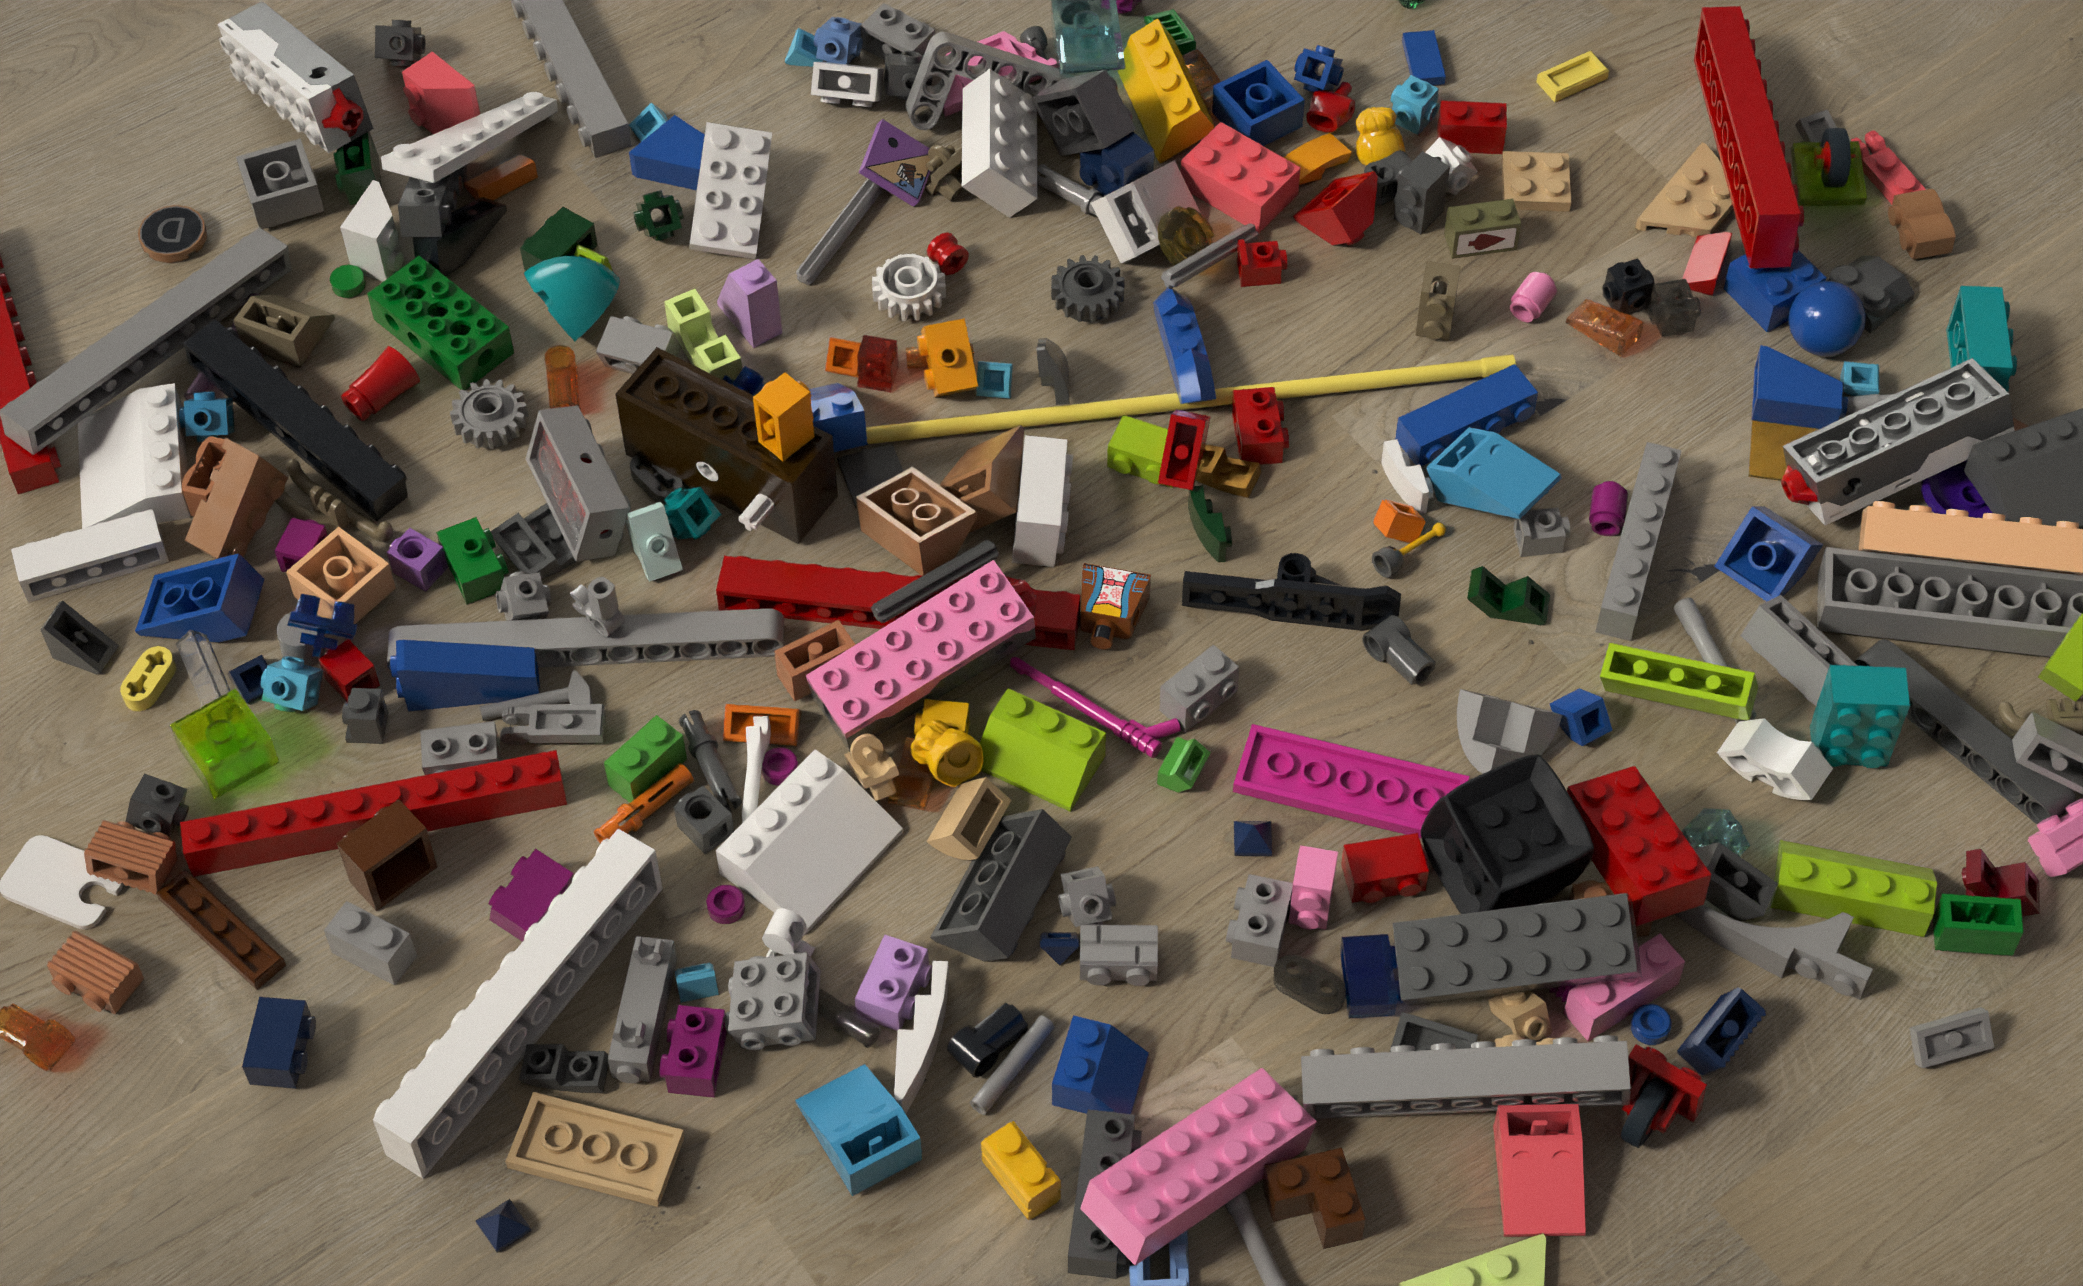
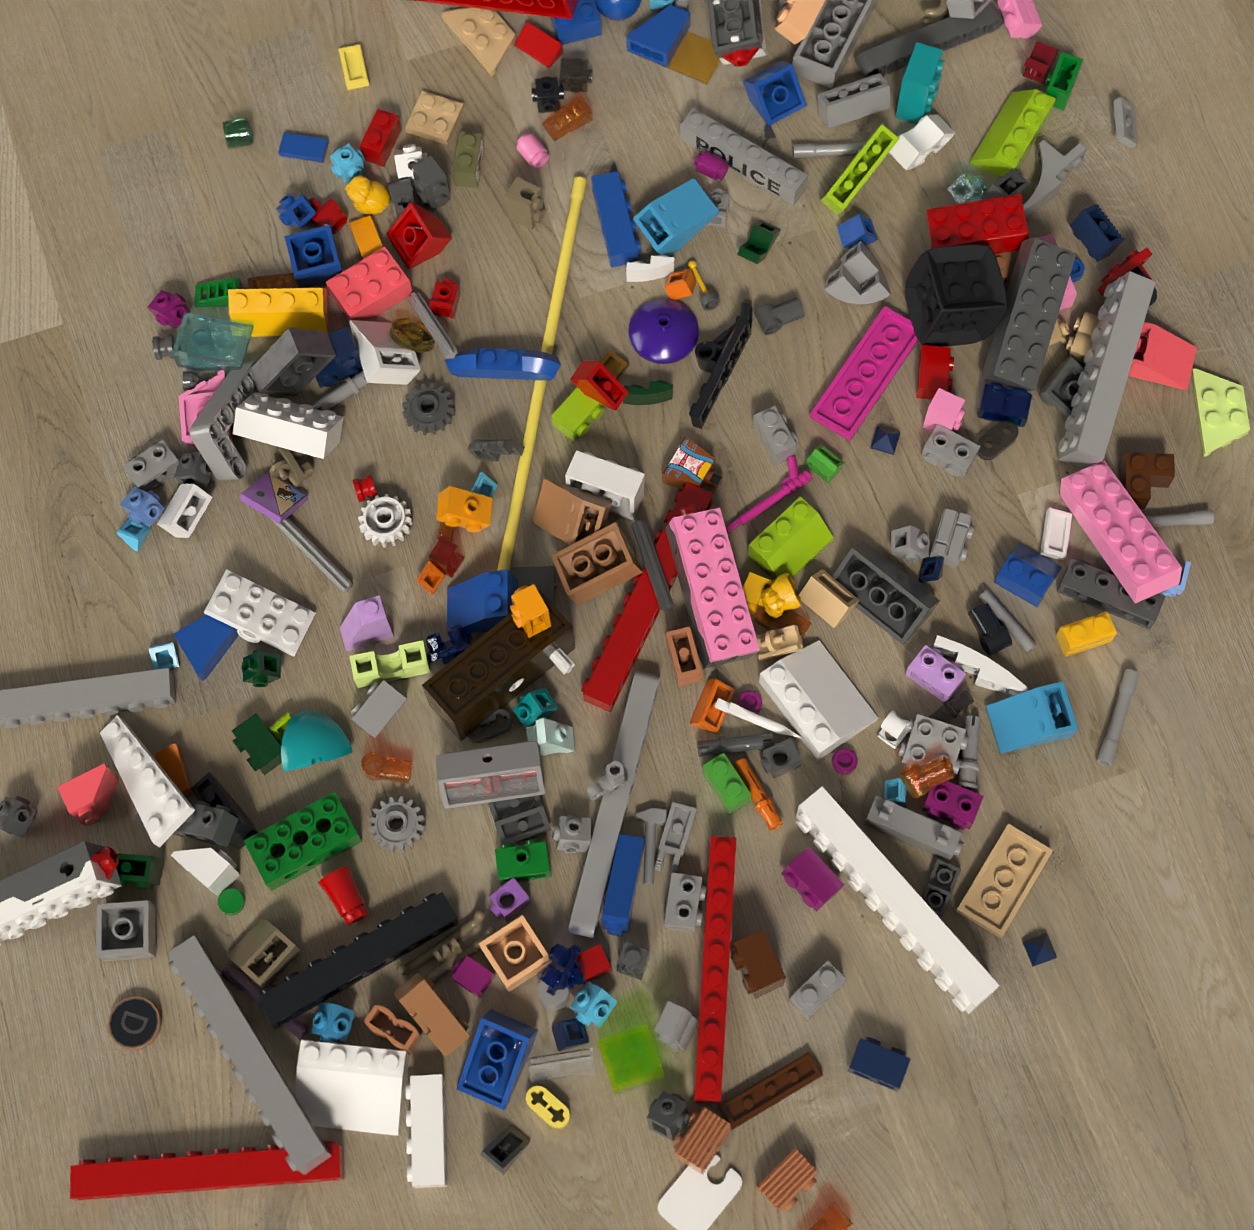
camera: 70 degrees left, 15 degrees up
(275, 773) = (675, 1027): none -> light grey brick
(715, 990) = (922, 778): none -> clear orange piece
(762, 1060) = (969, 764): none -> light grey pin
(855, 1249) = (1110, 742): none -> light grey piece
(1176, 1097) = (1056, 533): none -> white tile
(1258, 425) = (580, 340): red brick -> none
(1326, 536) = (667, 342): none -> dark purple dish

